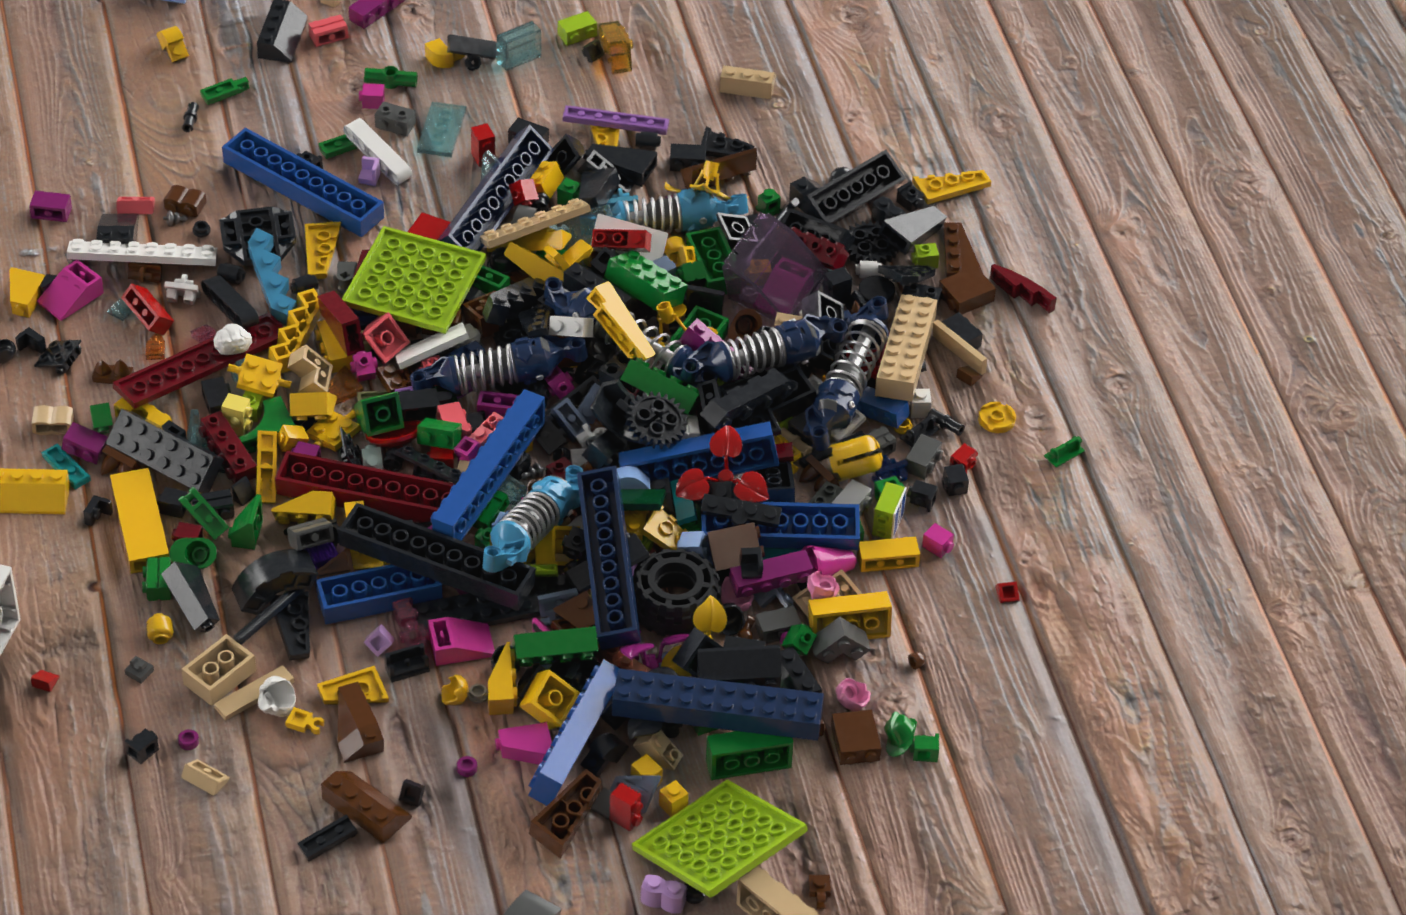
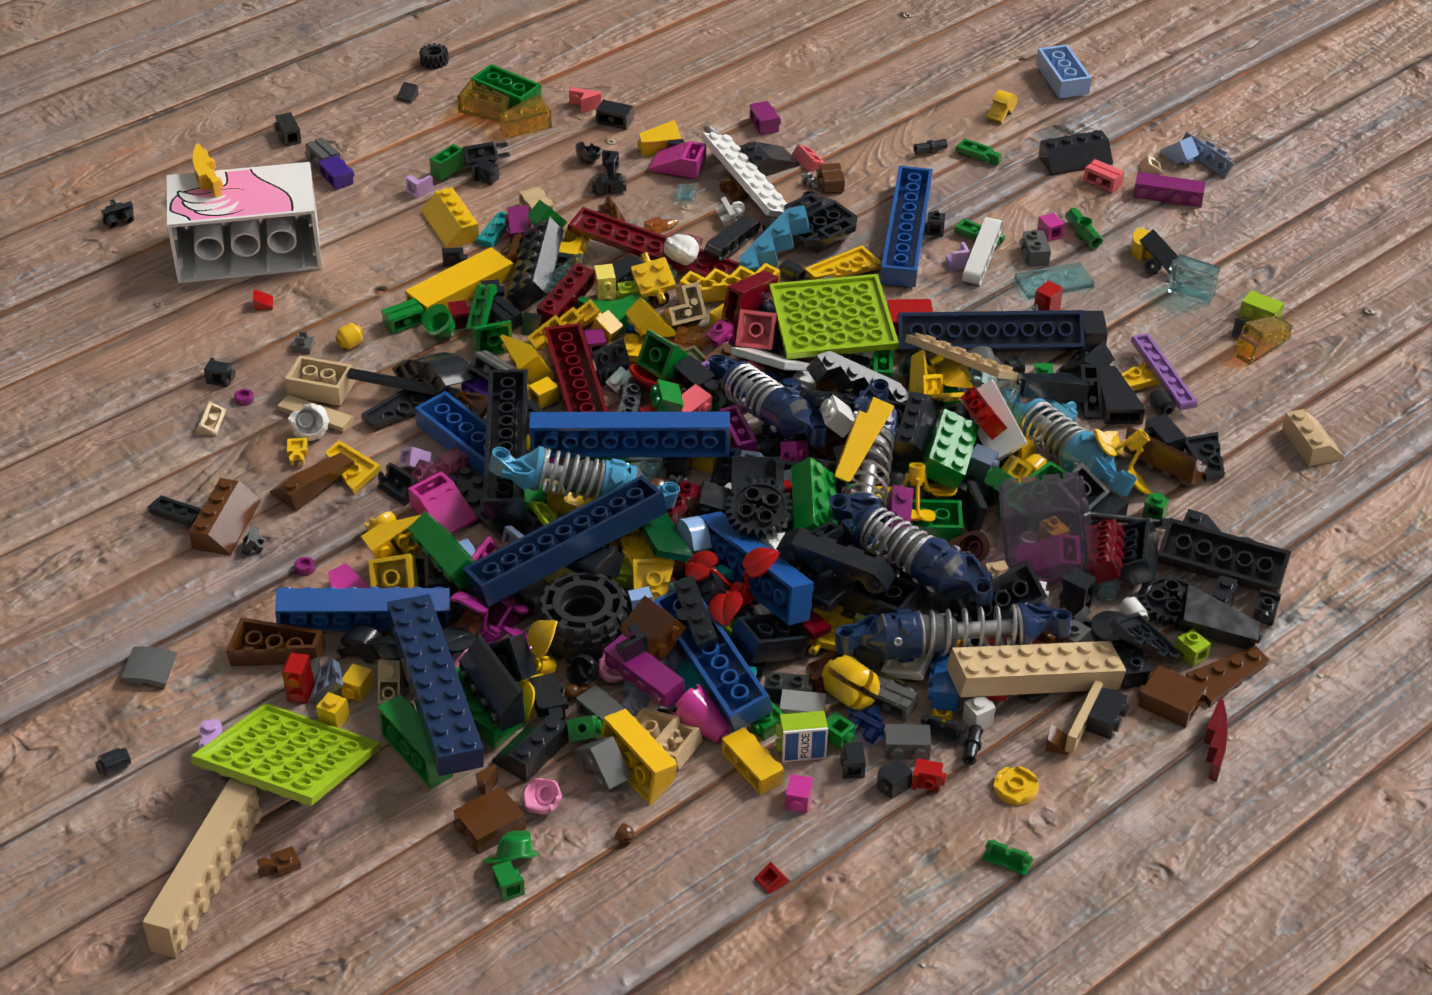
camera: 65 degrees right, 5 degrees down
(147, 309) = (690, 202): red brick -> none
(192, 595) = (391, 334): slope -> none
(523, 192) = (1005, 344): red brick -> none
(547, 177) = (1042, 353): yellow brick -> none
(822, 586) = (653, 713): bright pink hair -> none
(951, 185) = (1308, 629): yellow wing -> none

